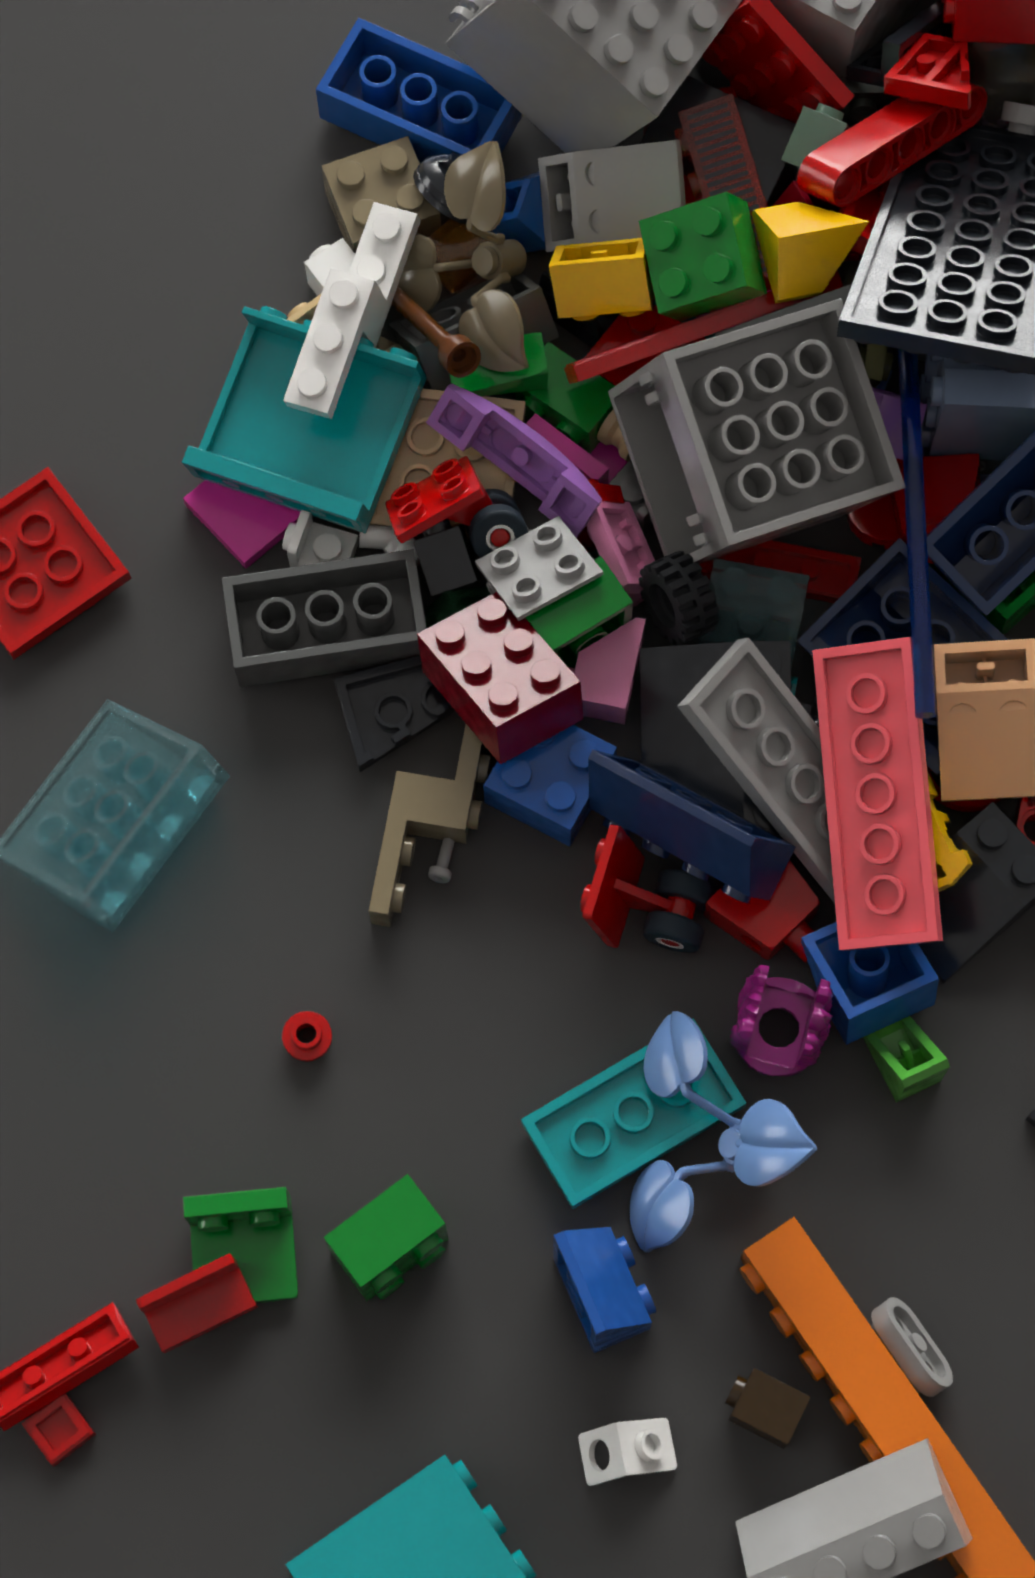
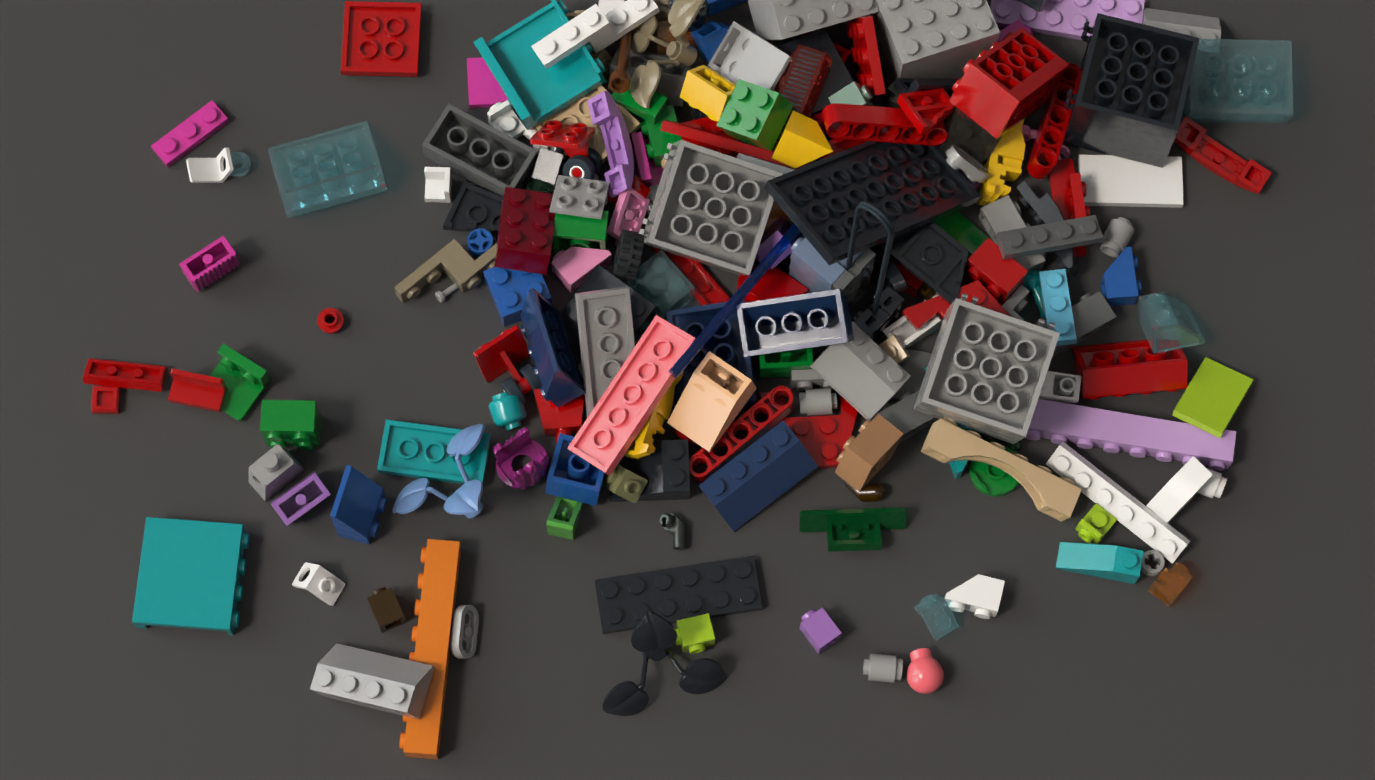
camera: 35 degrees right, 0 degrees up
(52, 1091) = (209, 264): none -> dark pink brick
(299, 711) = (438, 184): none -> white panel
(420, 1335) = (273, 471): none -> light grey torso
(435, 740) = (478, 238): none -> blue wheel
(497, 1342) = (300, 498): none -> medium lavender brick
(688, 965) = (507, 410): none -> teal head
(965, 938) = (625, 483): none -> olive bracket

